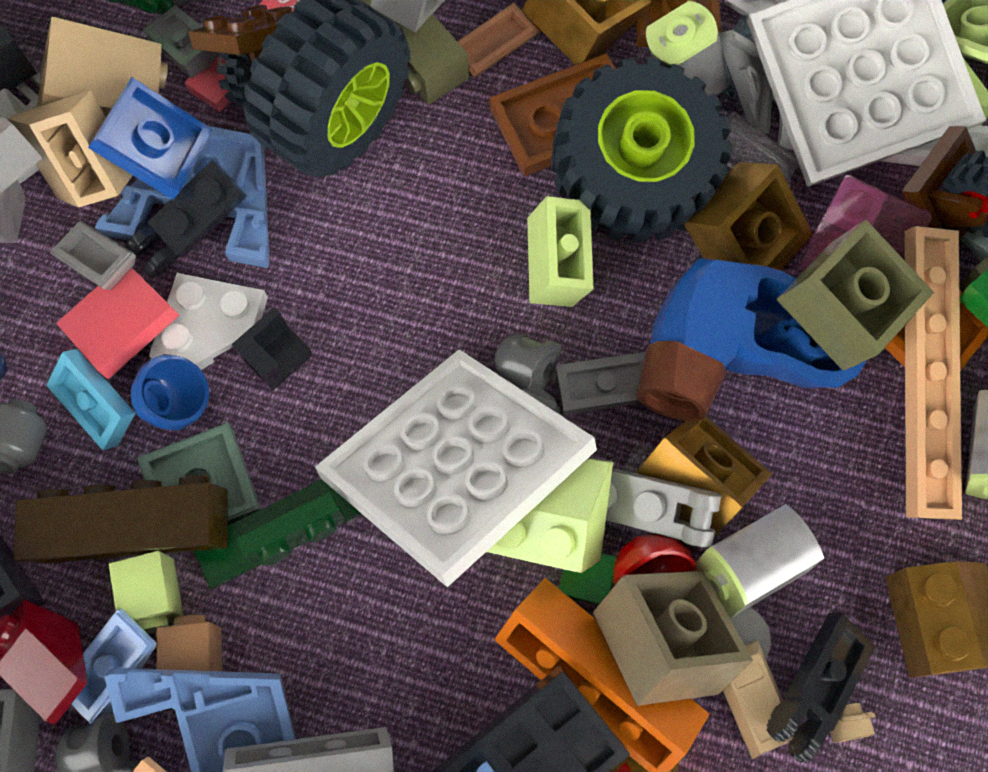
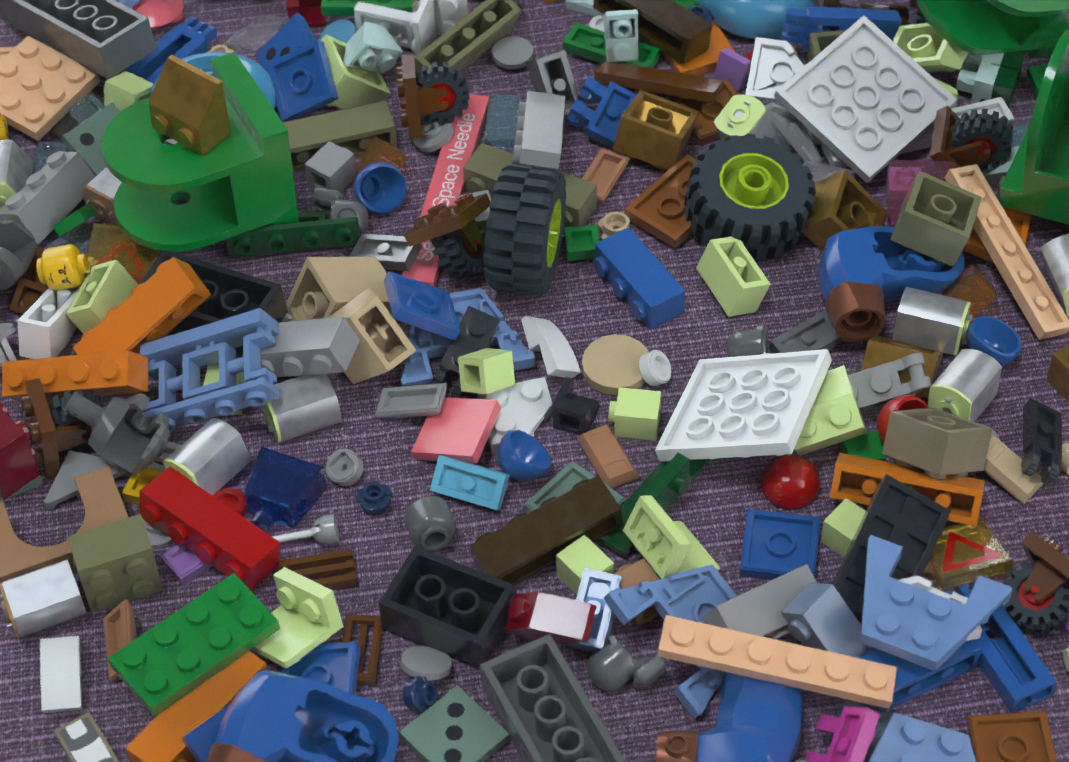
camera: 25 degrees left, 20 degrees down
(189, 257) = (486, 371): none -> yellowish green brick
(256, 617) = (664, 542): none -> yellowish green bracket
(277, 435) = (607, 457): none -> nougat tile
(293, 252) = (555, 349): none -> white slope
(336, 394) = (636, 414): none -> yellowish green brick
(360, 309) = (613, 363): none -> tan tile
(396, 338) = (655, 368): none -> white tile
(405, 668) = (778, 544): none -> blue tile
(415, 123) = (581, 242): none -> green plate
(449, 203) = (639, 278): none -> blue brick
(468, 109) = (613, 223): none -> tan plate
(477, 590) = (791, 482): none -> red piece
(492, 690) = (841, 526): none -> yellowish green brick
(776, 432) = (932, 321): none -> flat silver piece
(841, 499) = (994, 338): none -> blue piece
(851, 410) = (972, 287): none -> clear orange panel

